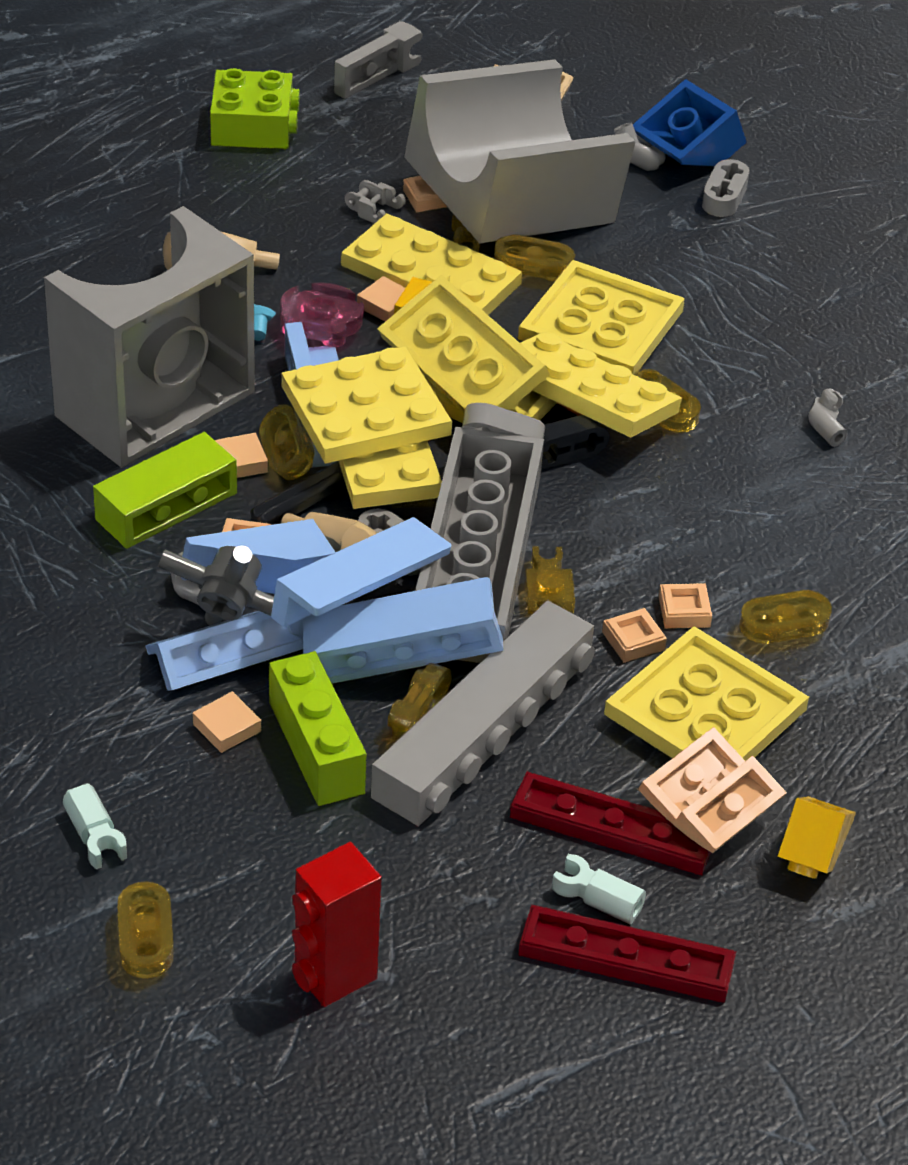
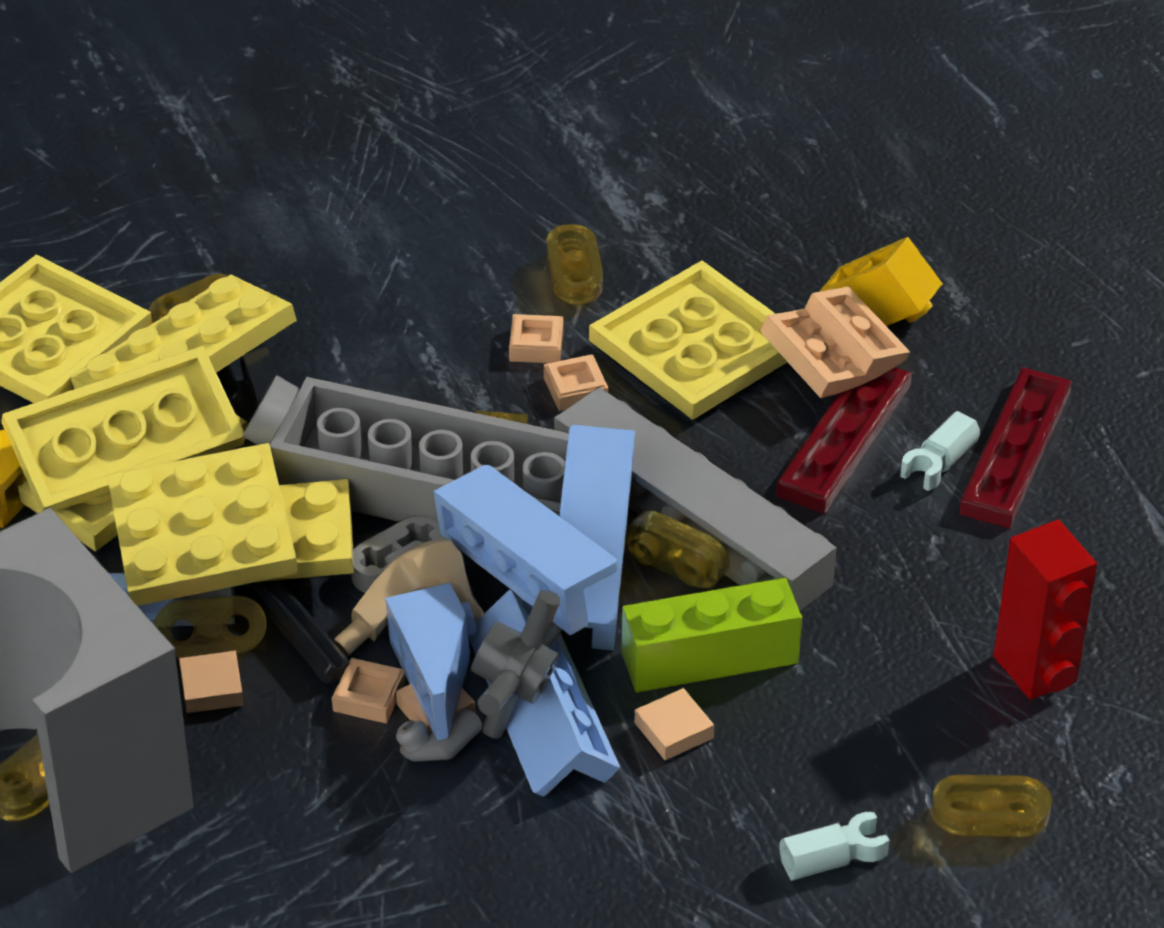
camera: 80 degrees left, 0 degrees up
(165, 489) = (275, 748): lime brick -> none
(824, 416) = (260, 191): light grey arm -> none

